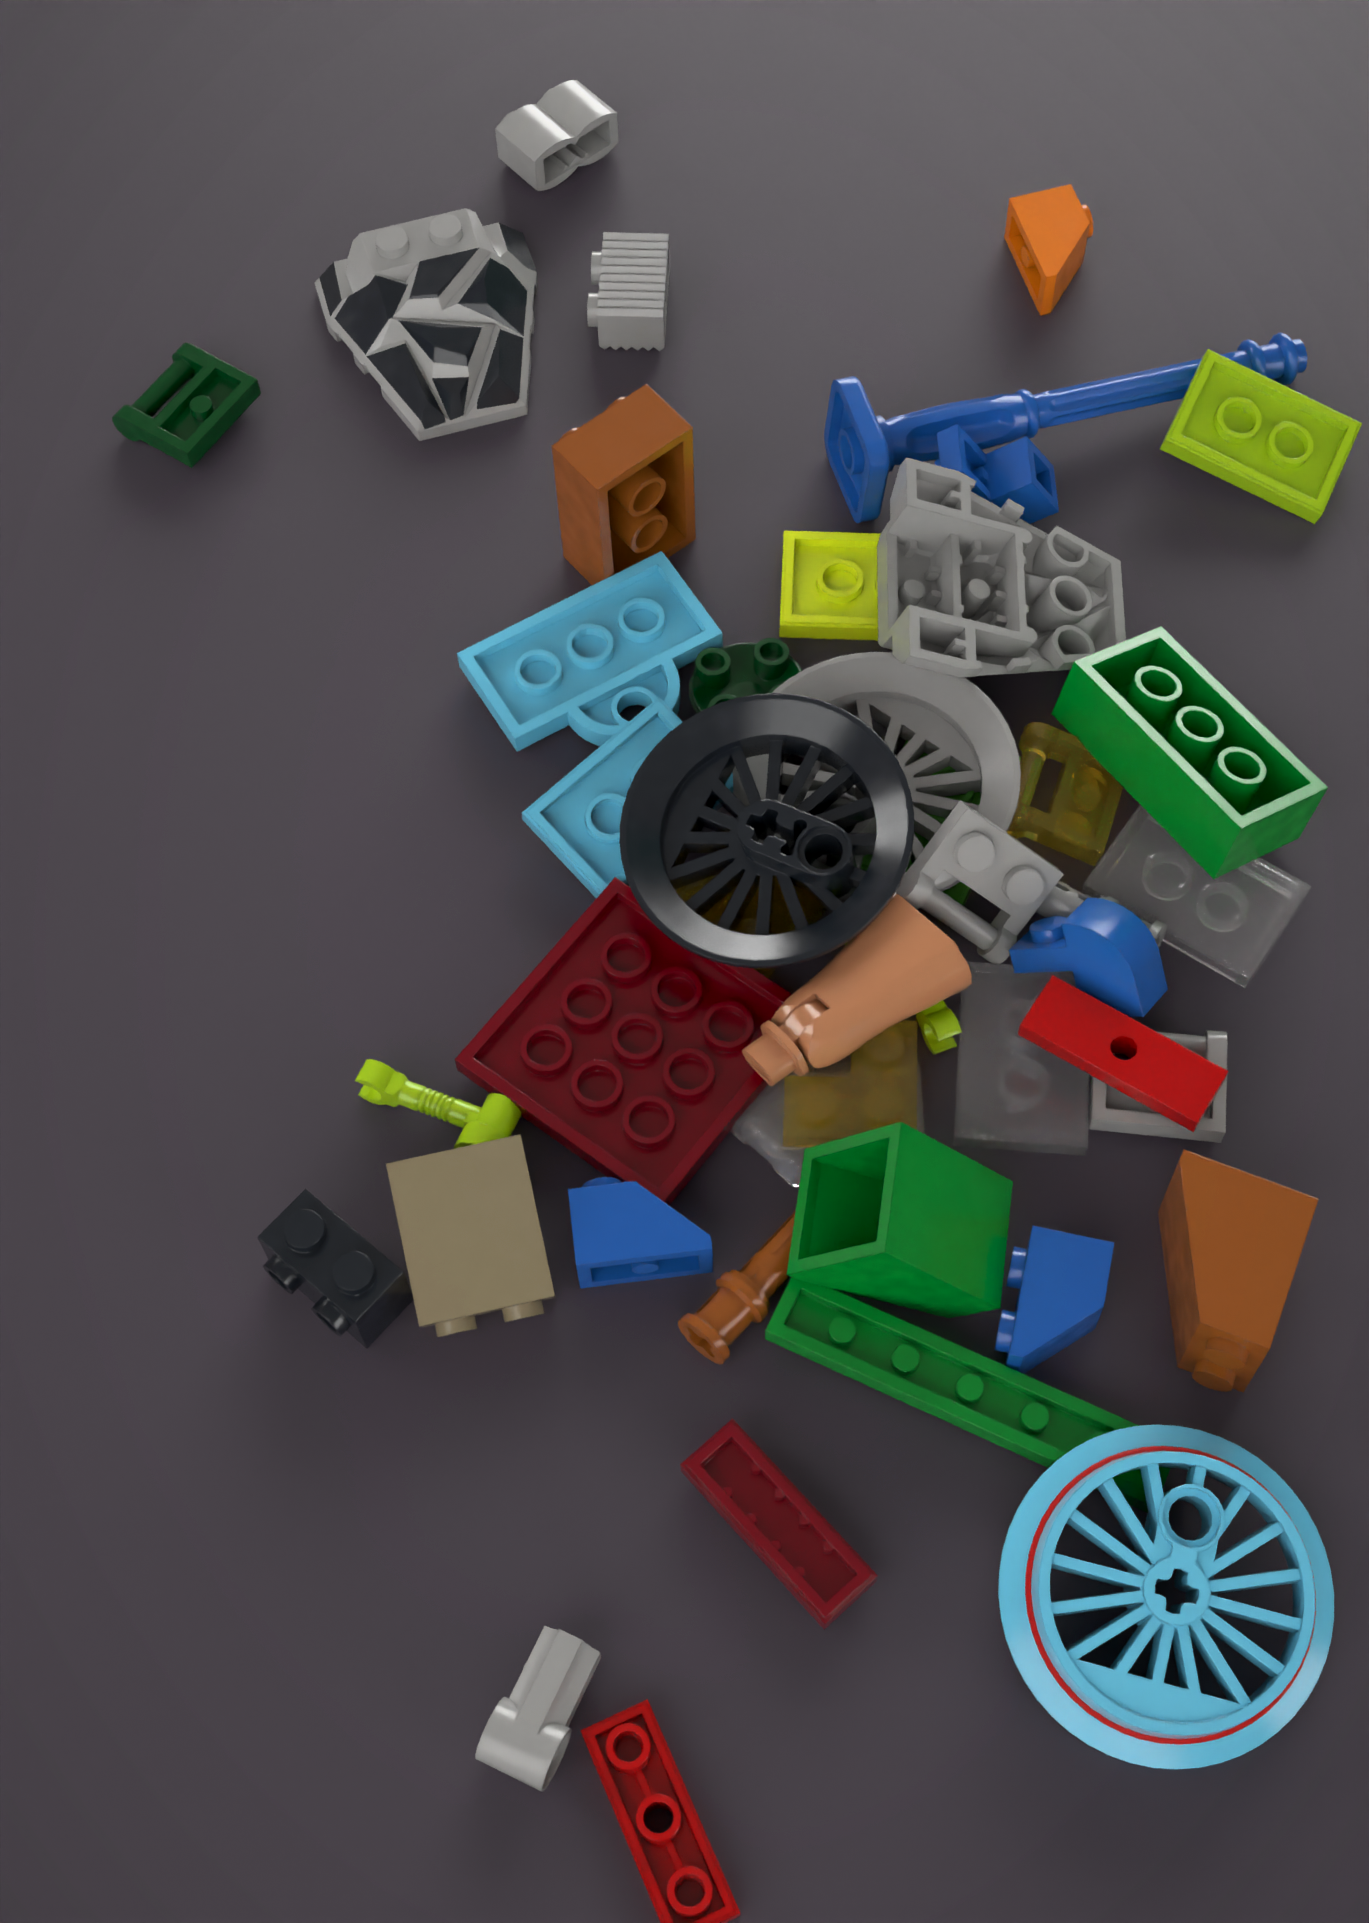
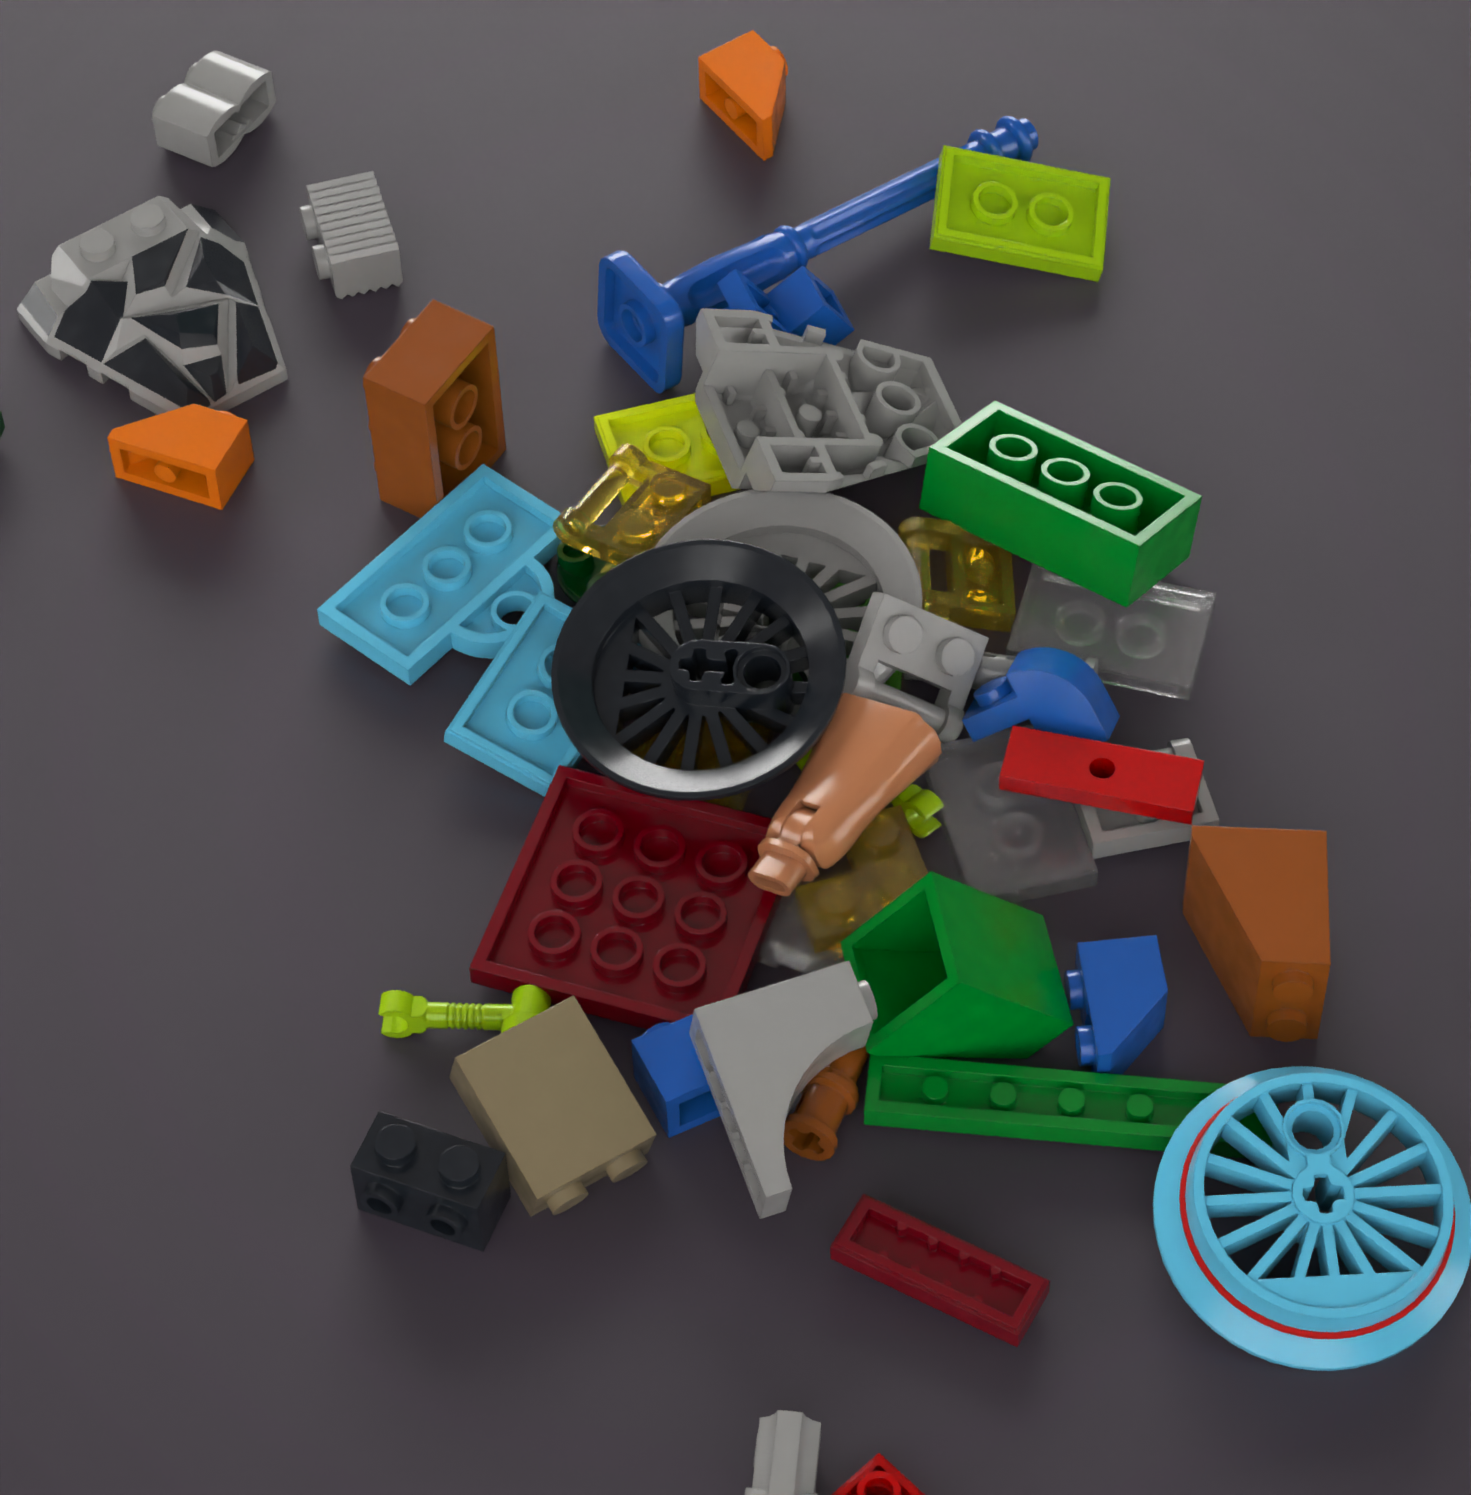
camera: 20 degrees left, 10 degrees down
(403, 464) = (185, 453): none -> orange slope
(682, 1251) = (765, 1051): none -> light grey arch
(797, 644) = (650, 512): none -> clear yellow plate

